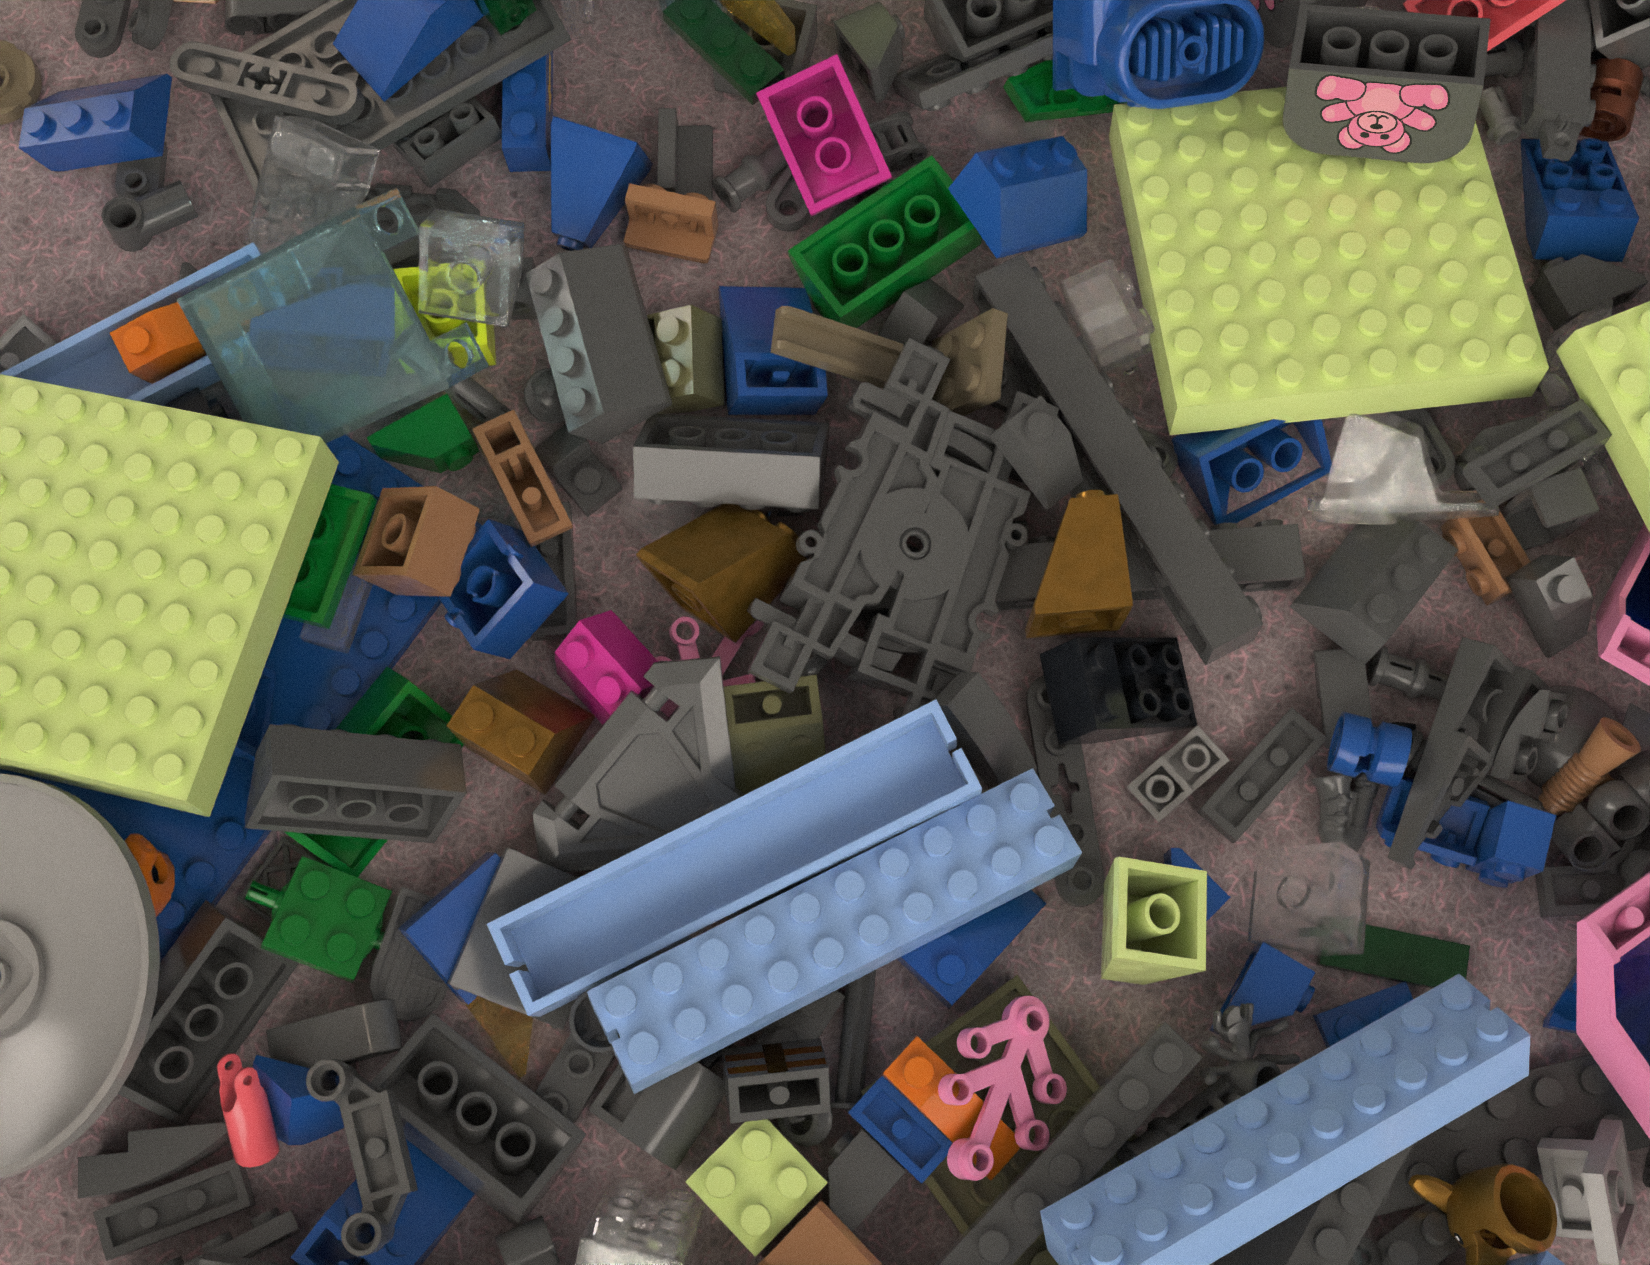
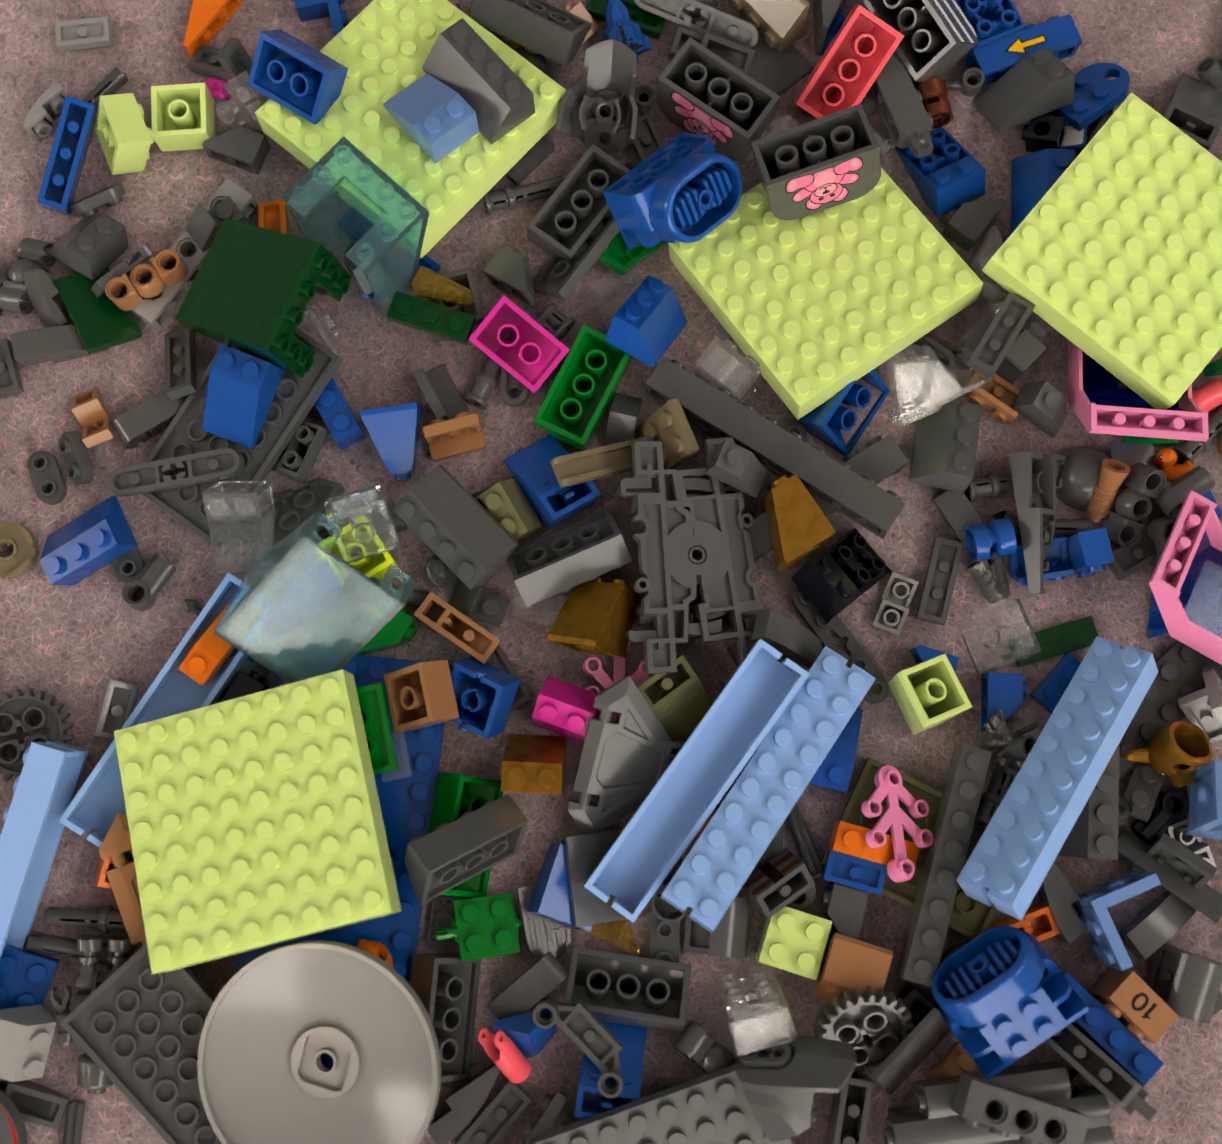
camera: 30 degrees left, 5 degrees up
(1538, 719) = (1069, 479): dark grey slope -> none

